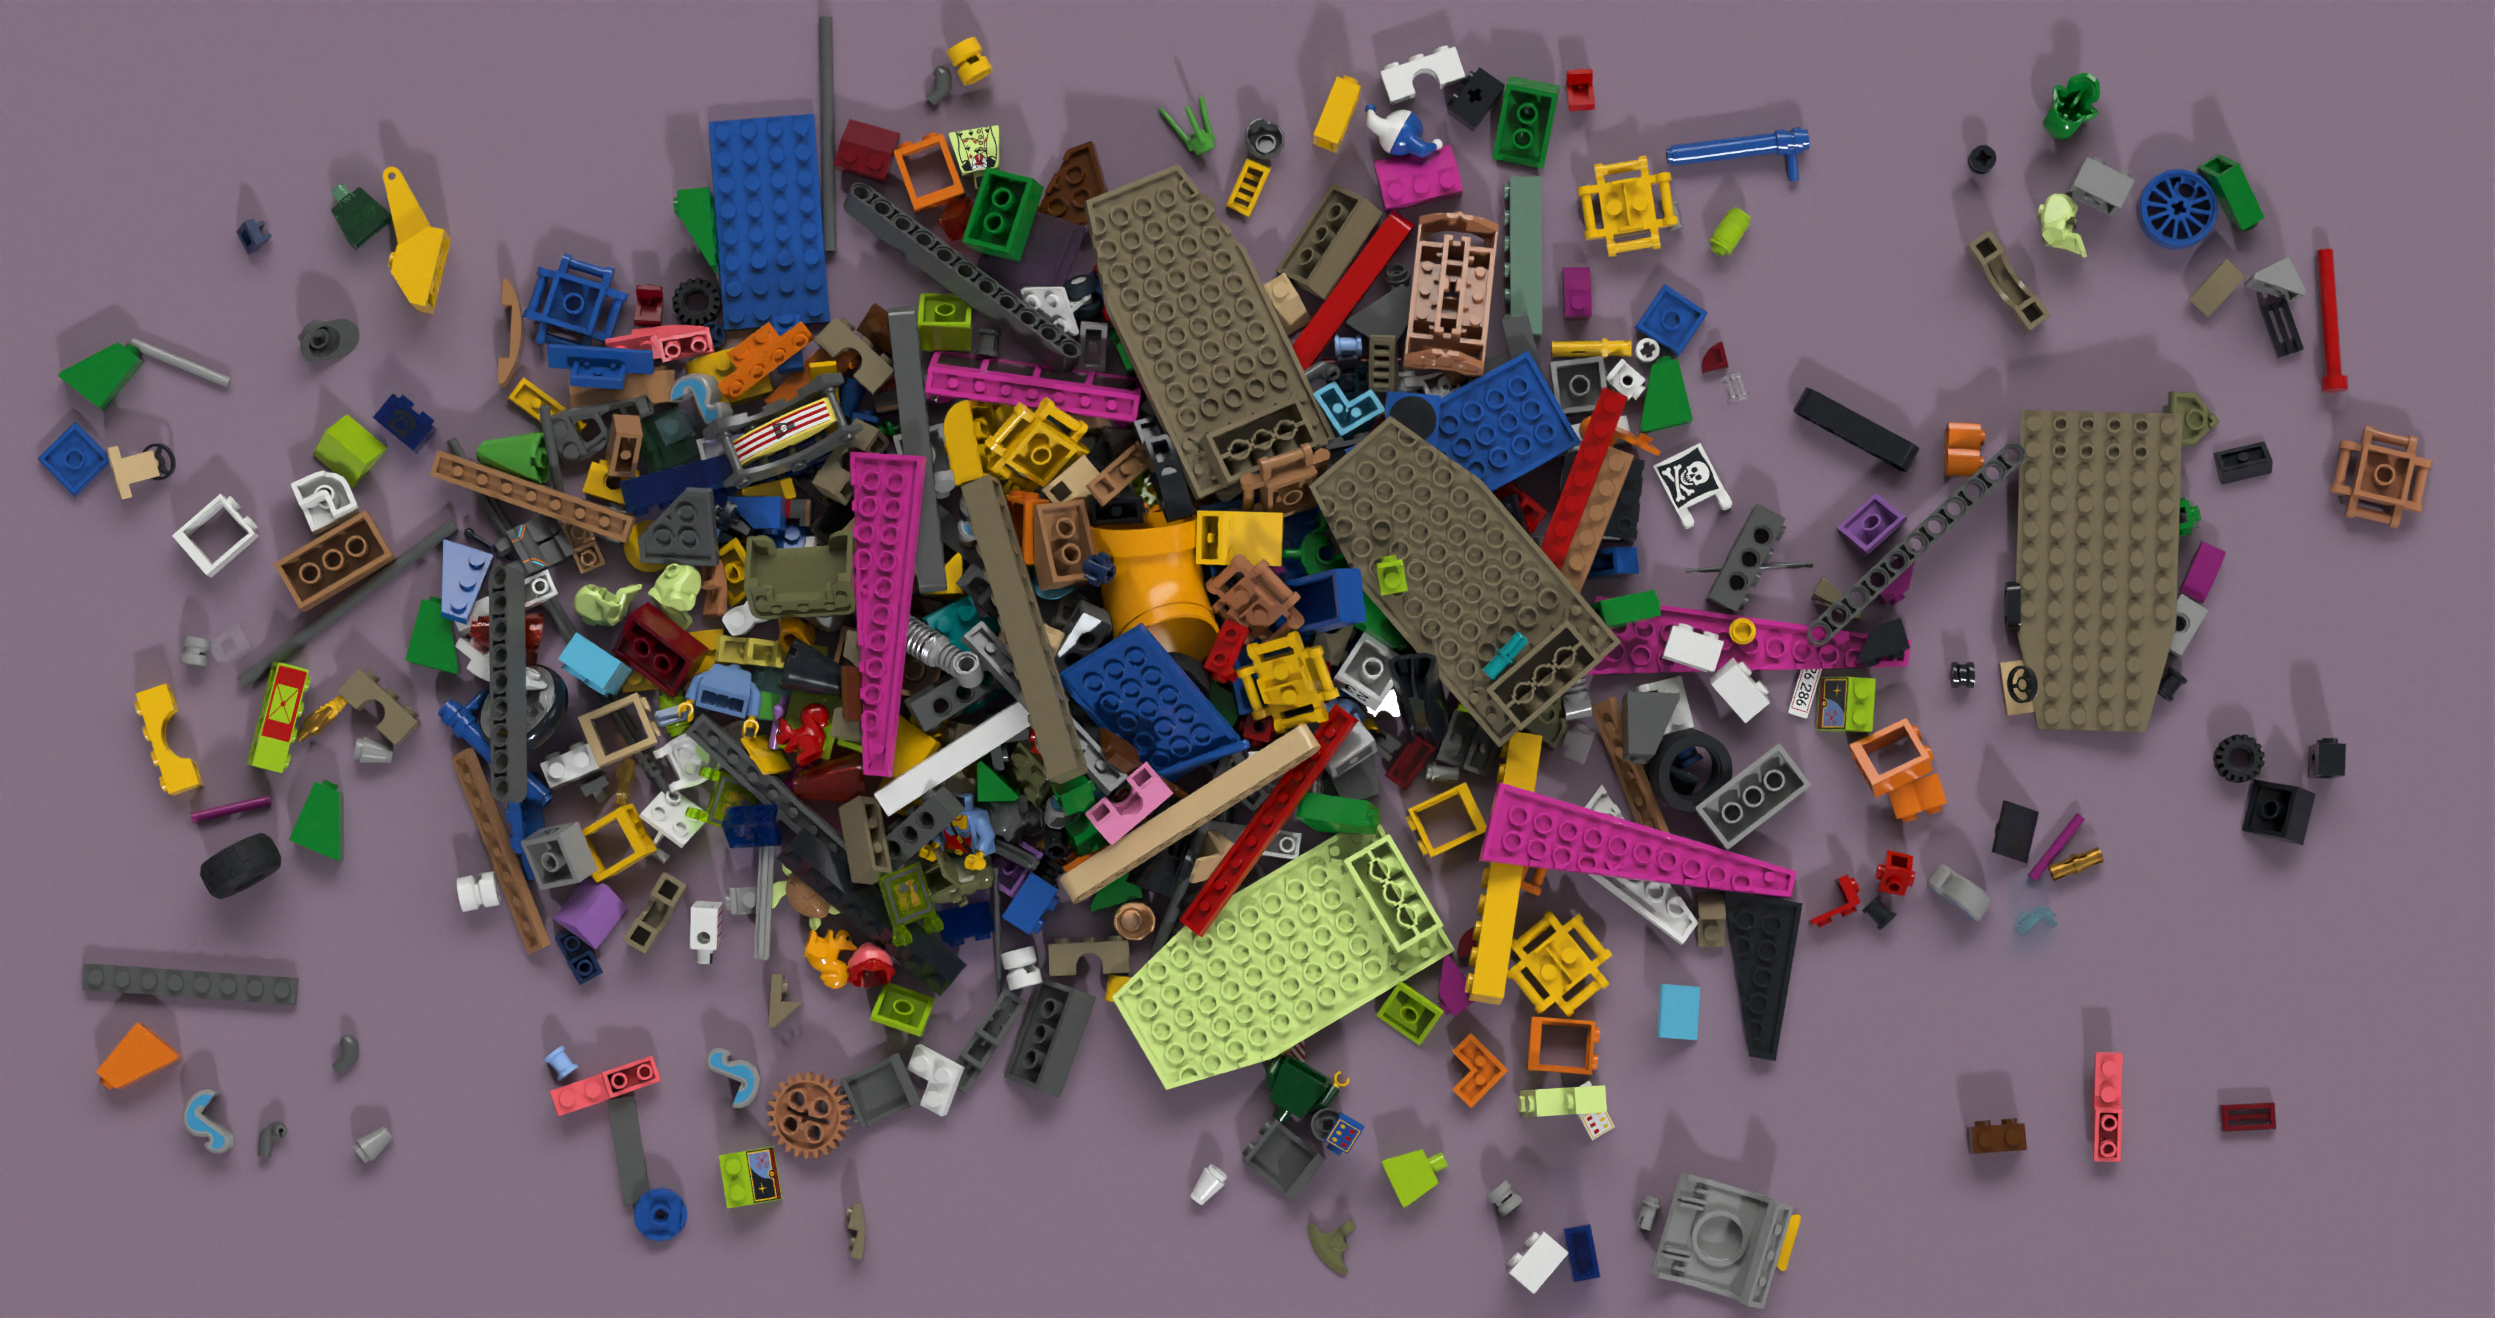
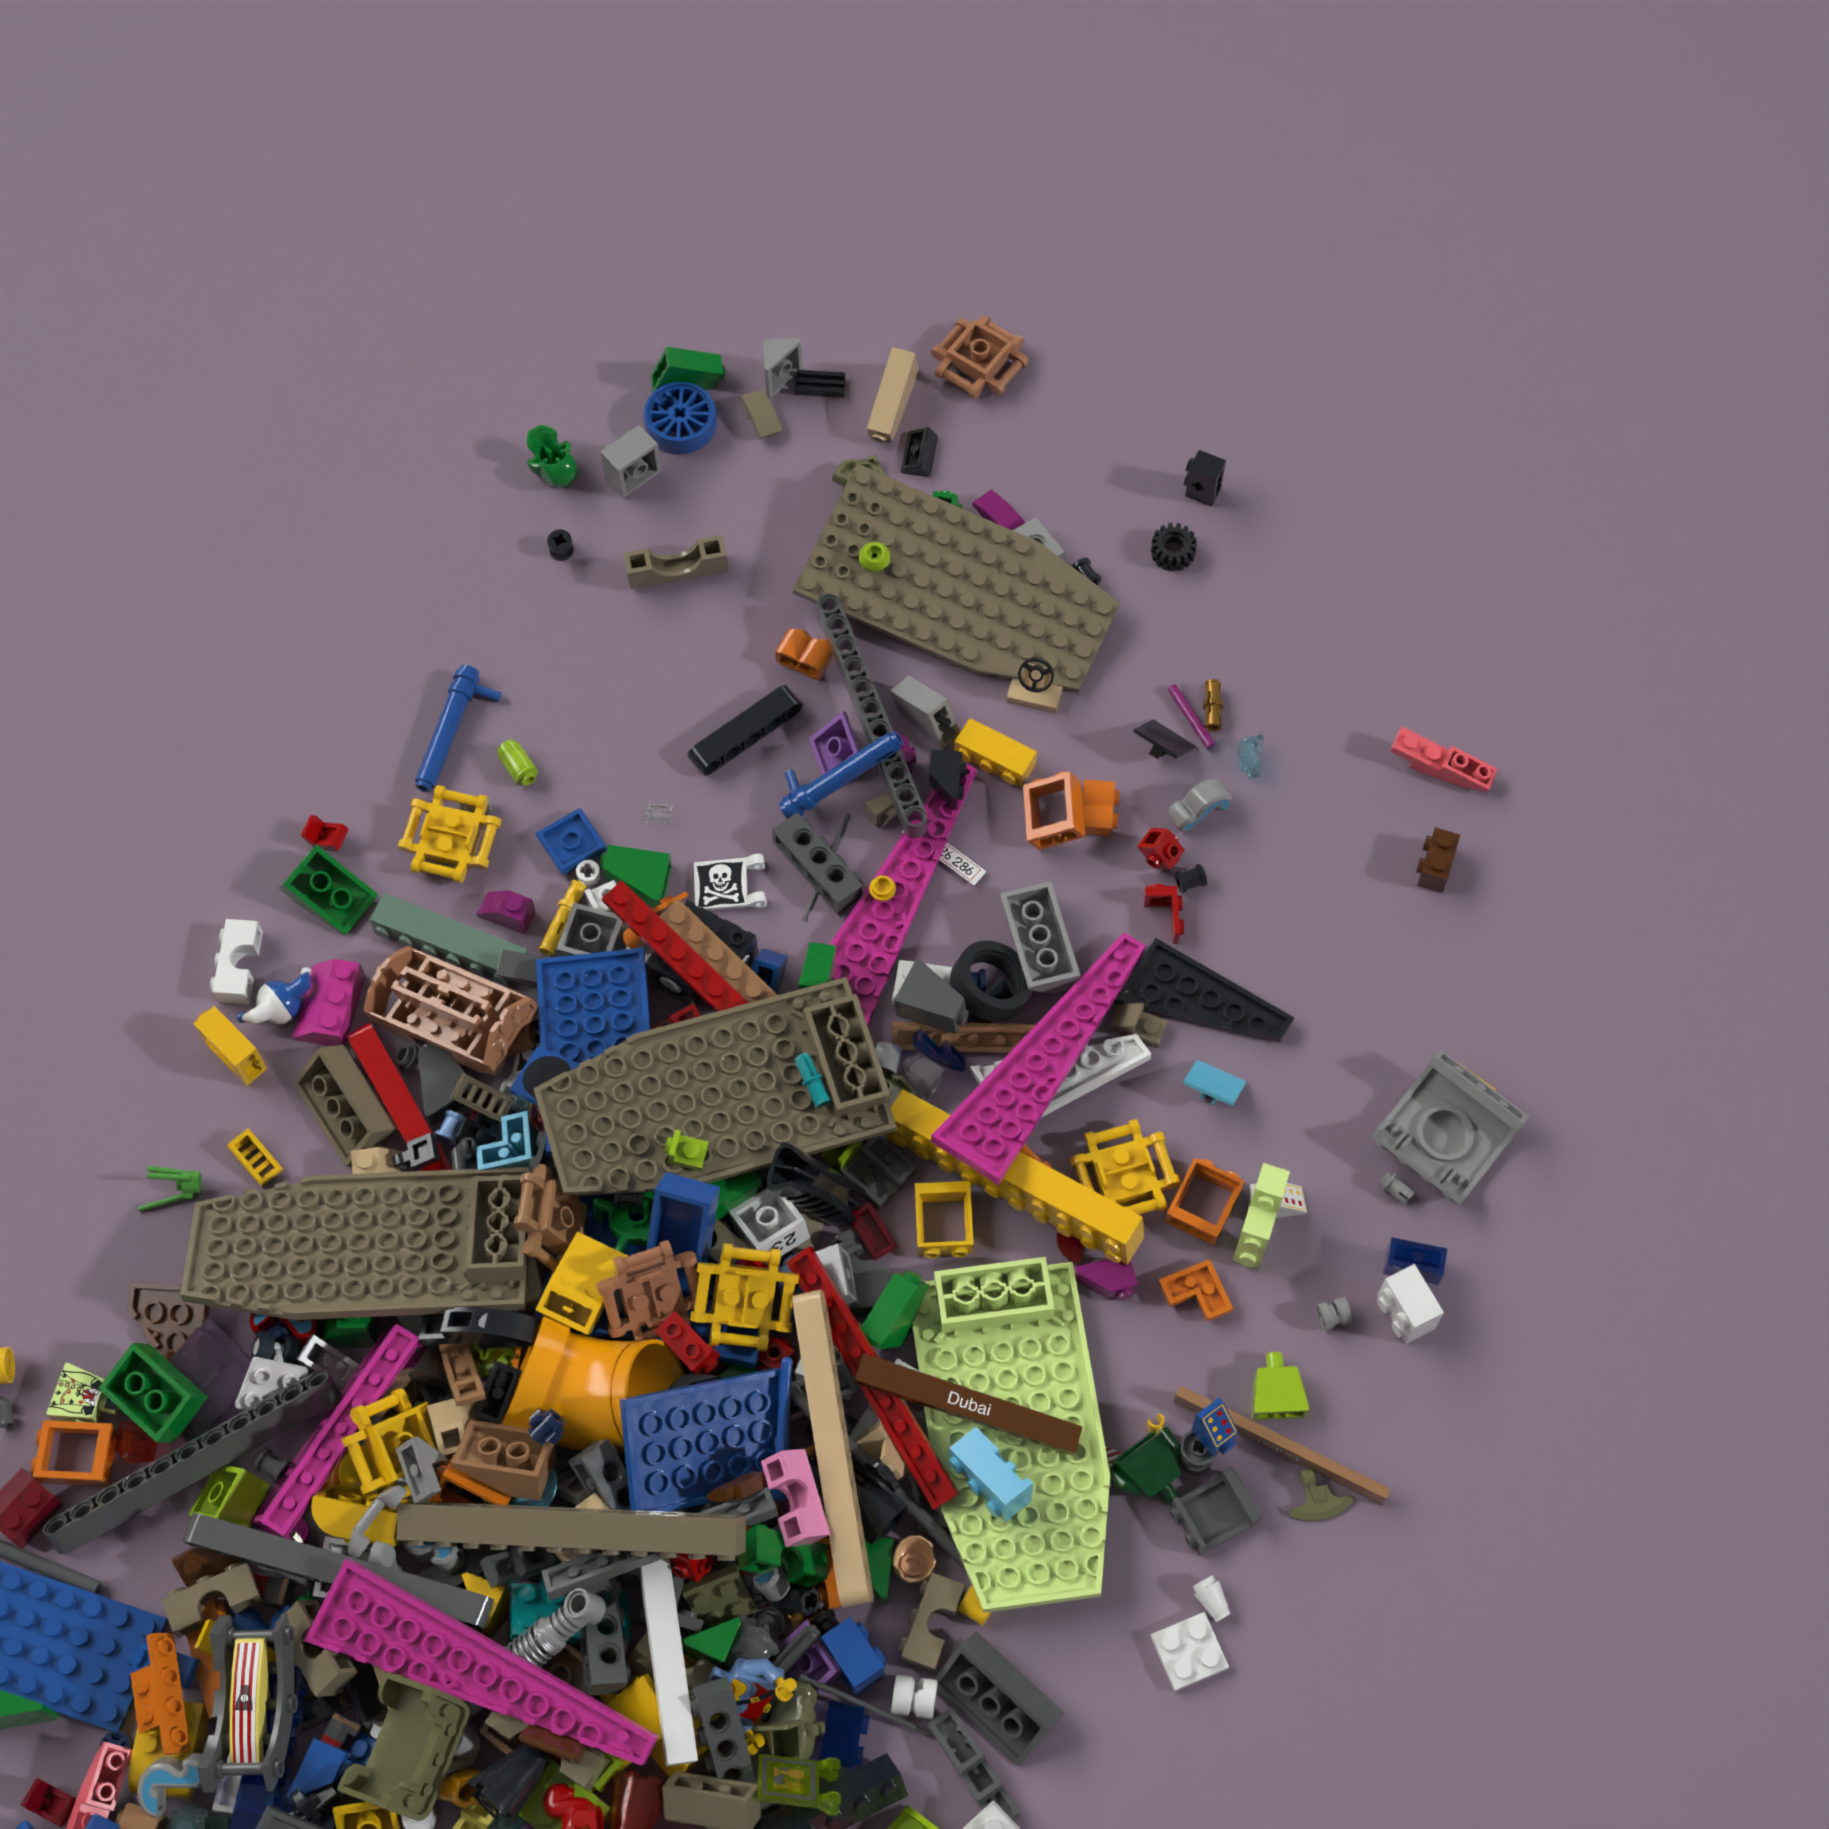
camera: 65 degrees left, 20 degrees down
(689, 288) = (58, 1742): black tyre -> none
(782, 488) = (304, 1738): yellow slope -> none
(991, 466) = (390, 1497): none -> light grey bar
(1025, 475) = (418, 1465): none -> light grey slope
(1156, 1182) = (1189, 1651): none -> white plate
(1225, 955) = (990, 1475): none -> medium azure wedge
(1264, 139) = (217, 1123): dark grey hair -> none
(1278, 913) = (968, 1404): none -> reddish brown tile
(1306, 335) = (420, 1153): none -> black plate
(1365, 1194) = (1291, 1450): none -> medium nougat tile
(1410, 1013) = (1116, 1327): lime slope -> none
(1441, 773) = (898, 1203): light grey pin -> none
(1473, 113) = (280, 911): black brick -> none
(1601, 756) = (944, 1055): none -> clear blue slope
(1693, 648) = (879, 934): white brick -> none
(1715, 359) = (624, 821): dark red tile -> none
(1739, 689) = (935, 911): white brick -> none
(1808, 521) = (807, 796): none -> blue cylinder
(1846, 704) = (989, 831): slope -> none
(1932, 676) = (995, 753): none -> yellow brick
(1948, 592) = (927, 711): none -> light grey slope
(1962, 674) = (1006, 725): black wheel -> none
(2012, 606) = (961, 667): black beam -> none
(2057, 224) = (646, 506): yellowish green head -> none
(2079, 481) = (874, 564): none -> lime plate
(2225, 1117) = (1488, 675): dark red tile -> none
(2278, 811) = (1233, 534): black slope -> none
(2291, 410) = (893, 395): none -> tan slope
(2334, 380) = (832, 346): red piece -> none

